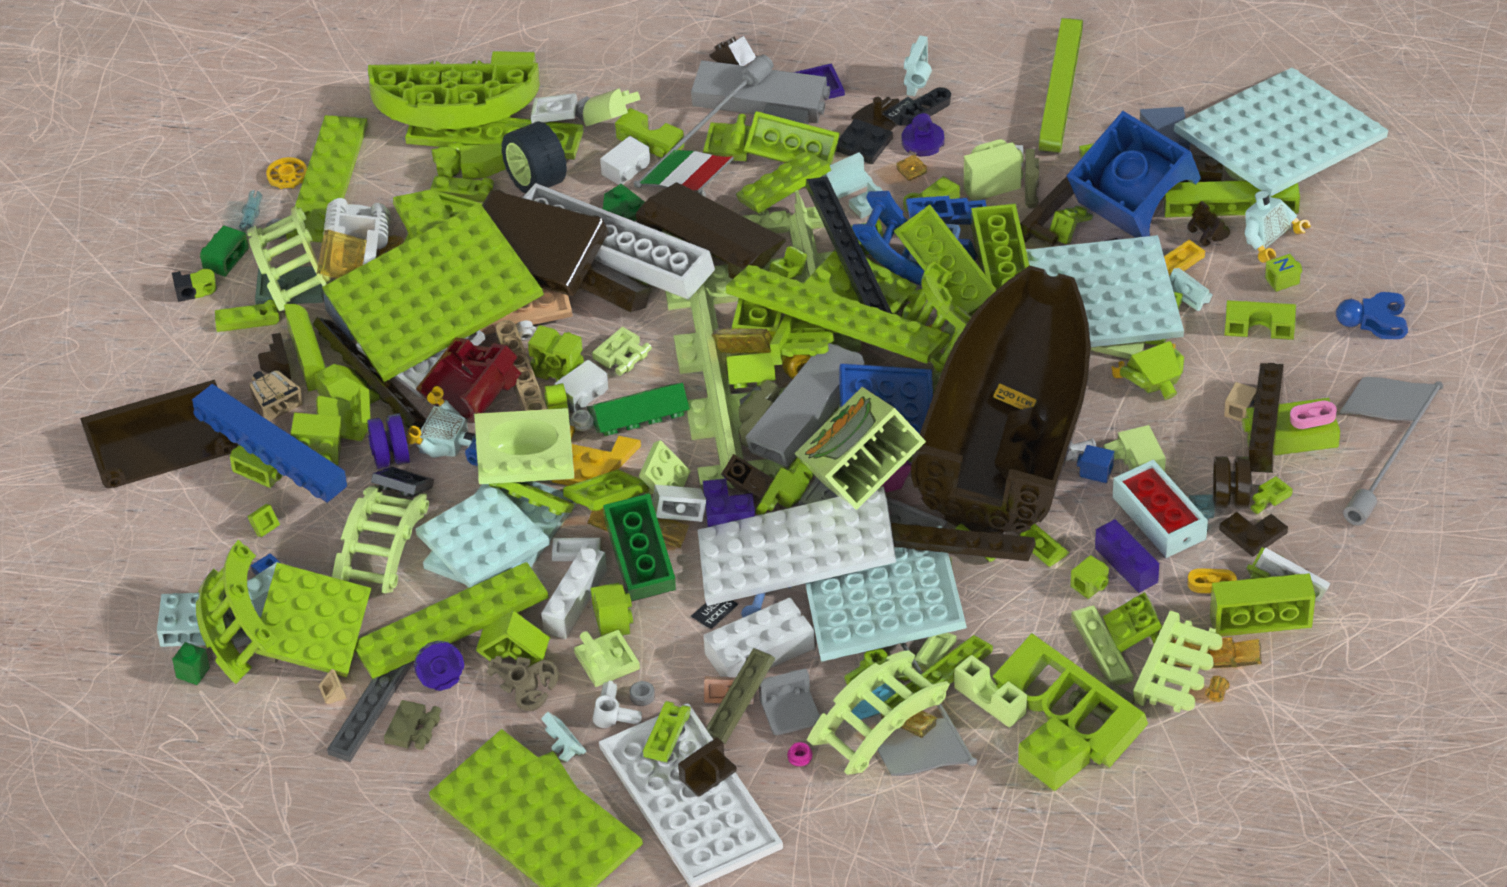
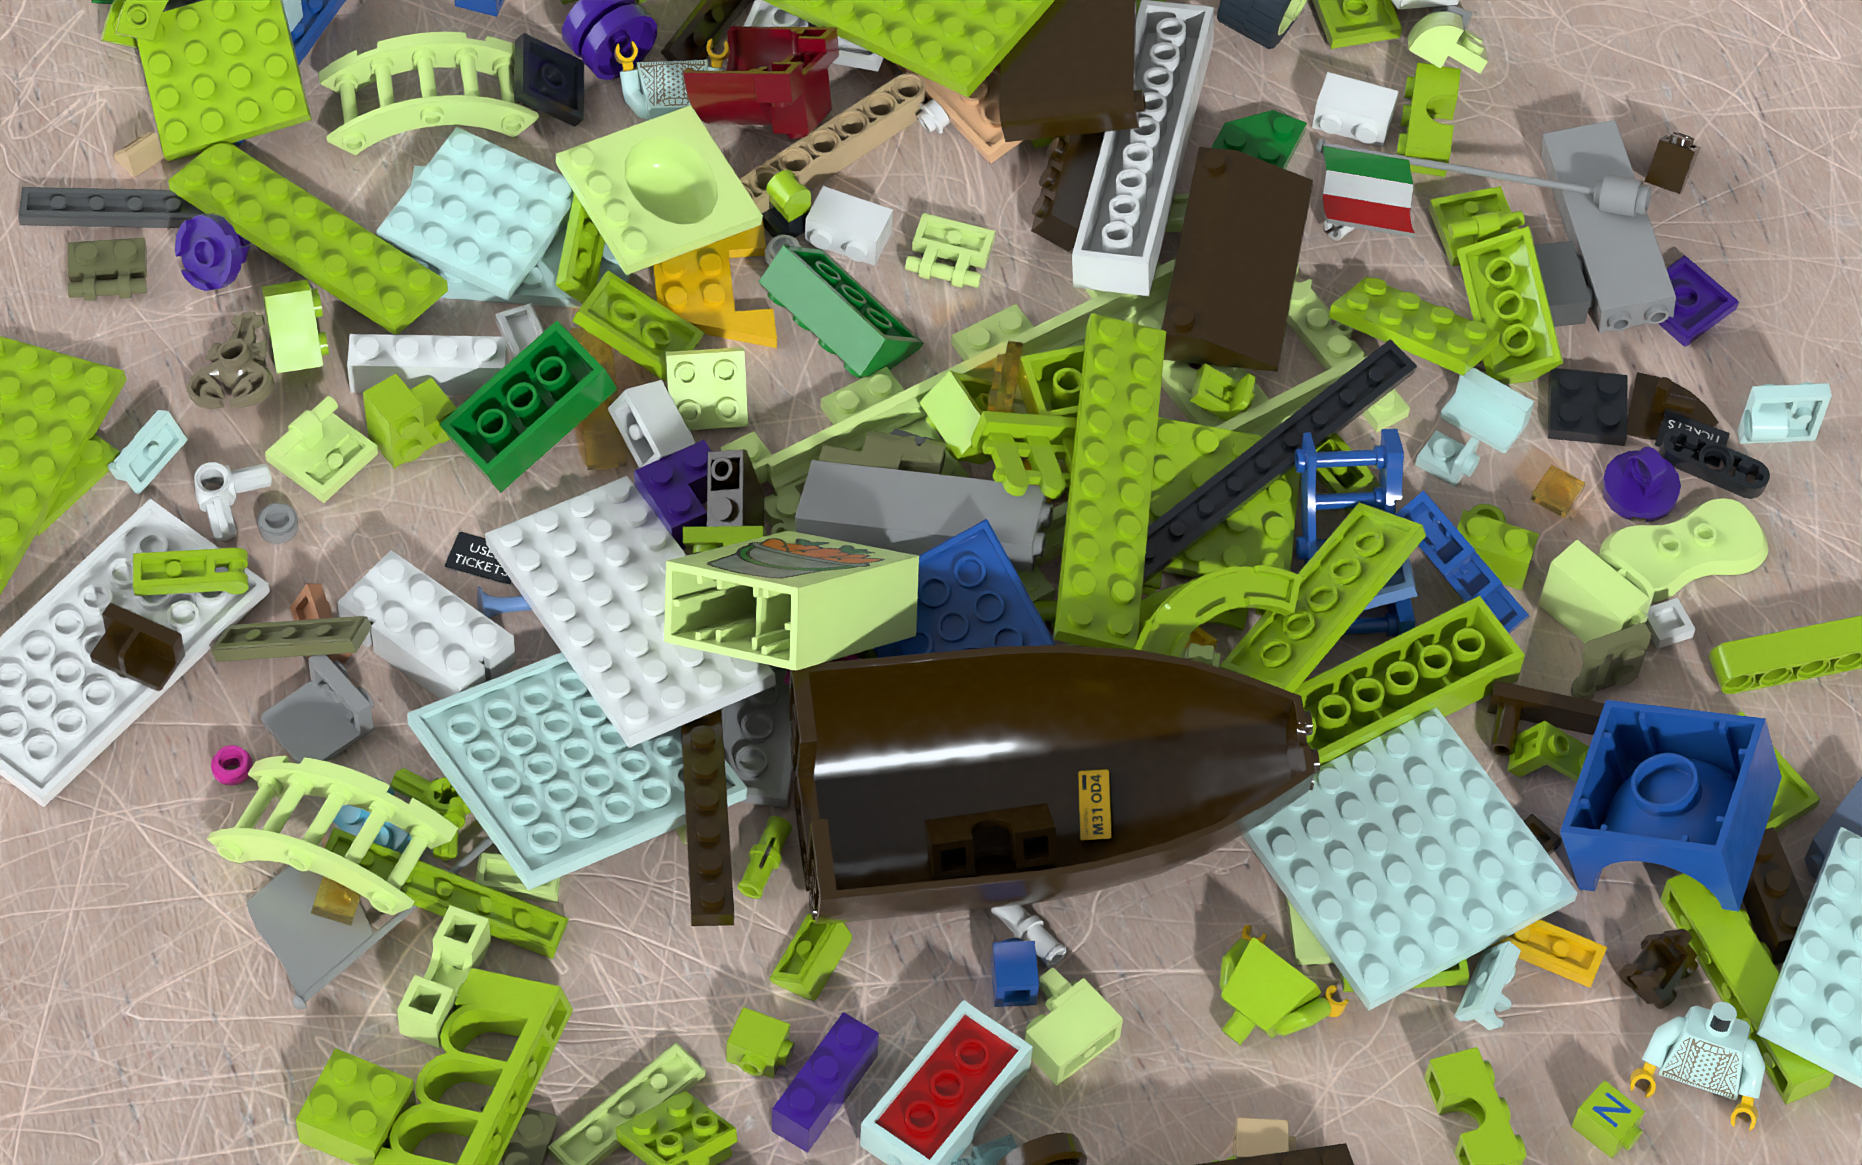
camera: 60 degrees right, 10 degrees up
(554, 353) = (882, 163): lime brick -> none
(967, 128) = (1706, 541): none -> yellowish green plate

